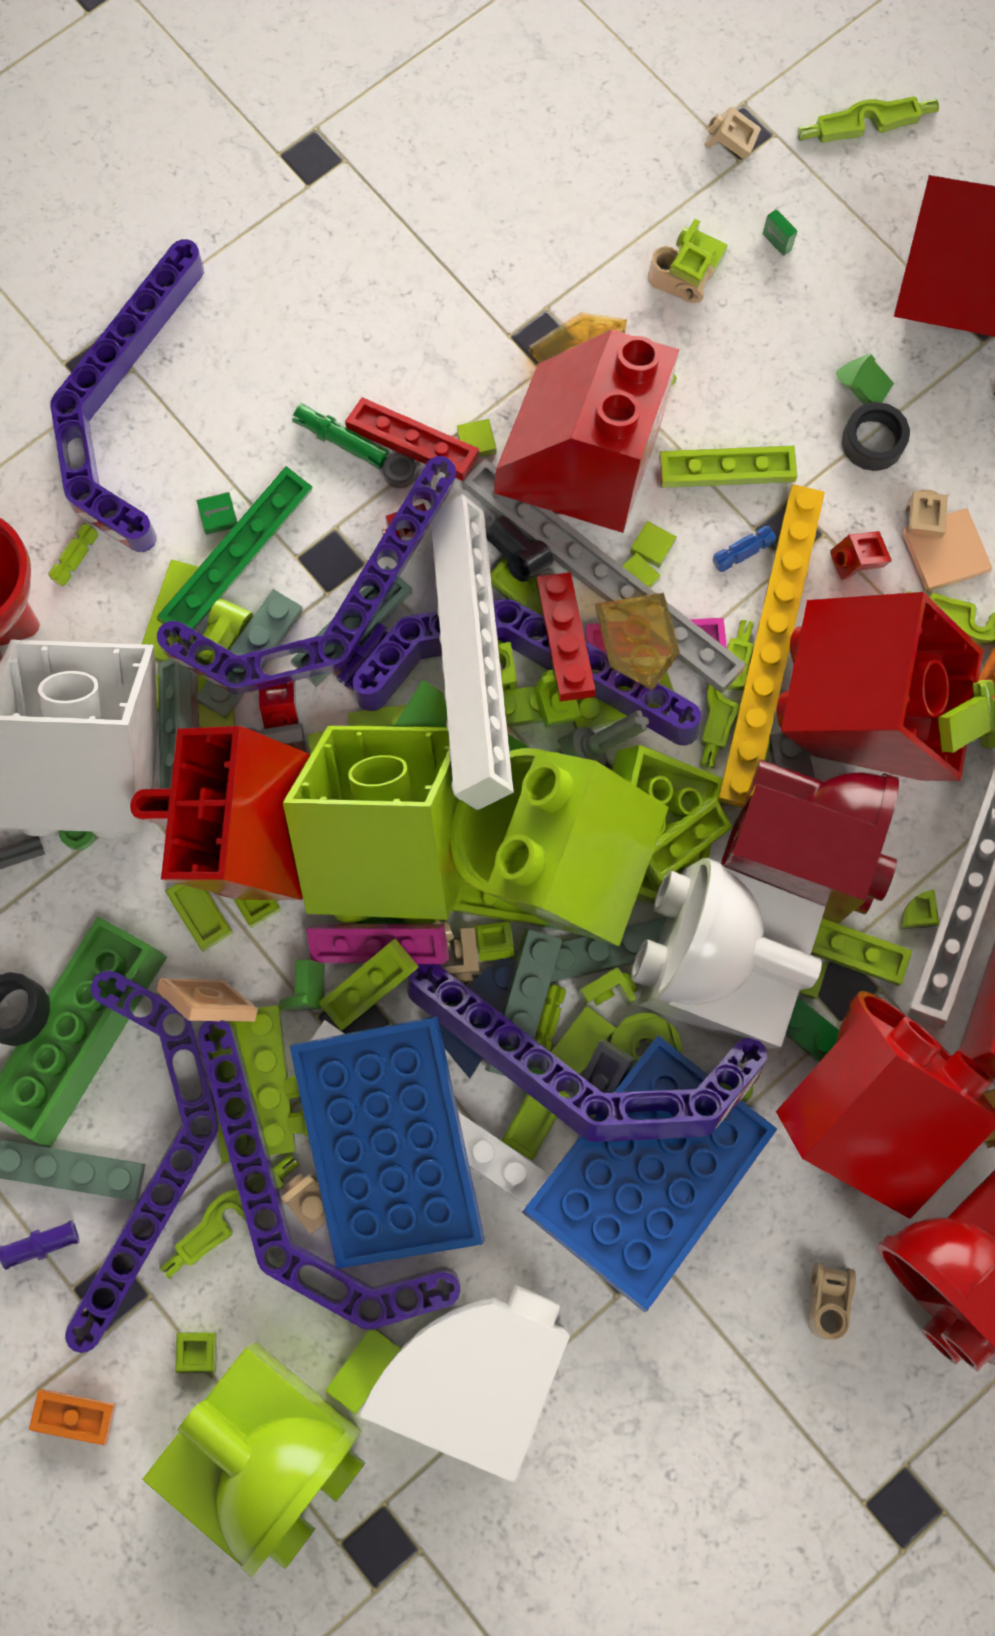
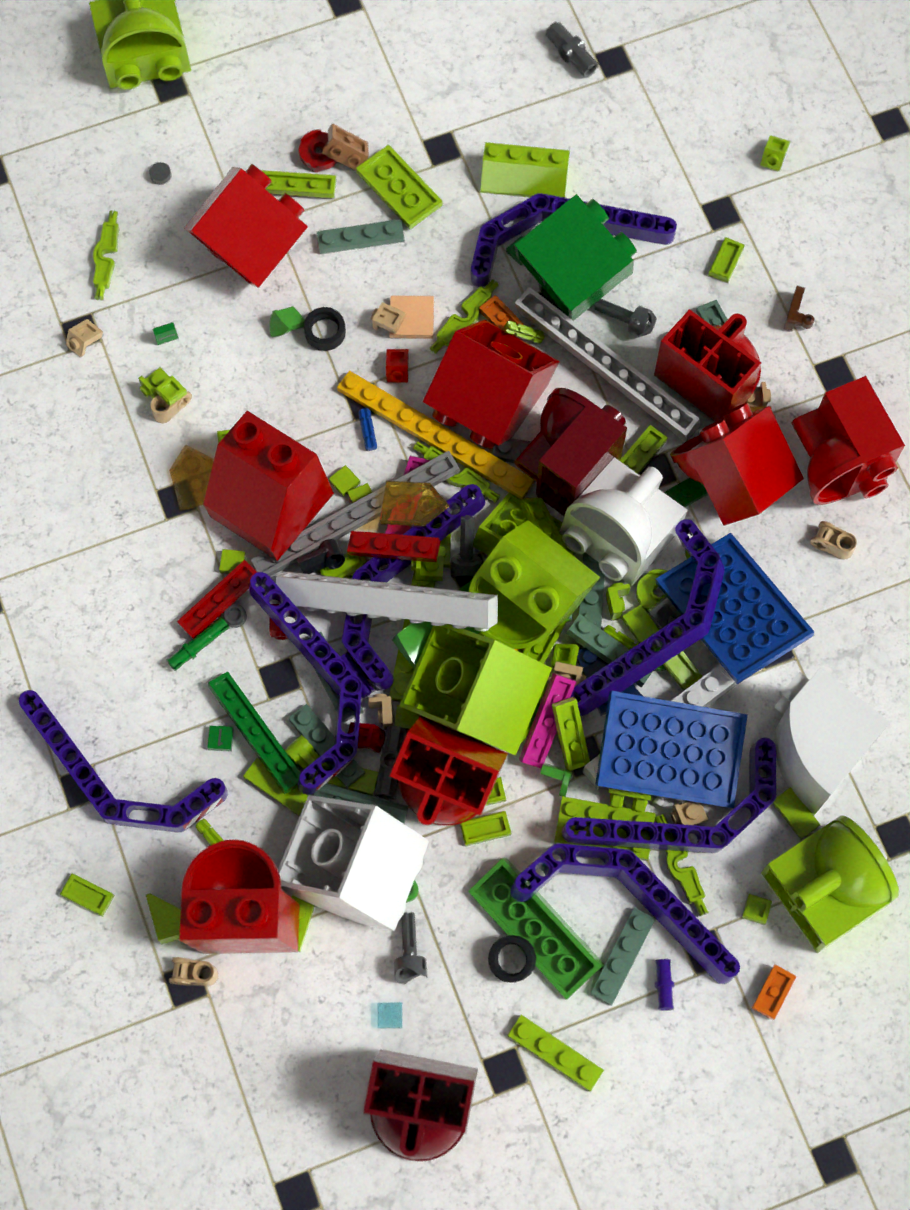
camera: 70 degrees left, 5 degrees down
(206, 1000) = (549, 830): light nougat tile -> none
(320, 715) = (385, 714): none -> tan bracket
(728, 466) = (313, 412): lime plate -> none
(921, 912) = (629, 412): lime tile -> none
(964, 724) = (529, 344): lime tile -> none

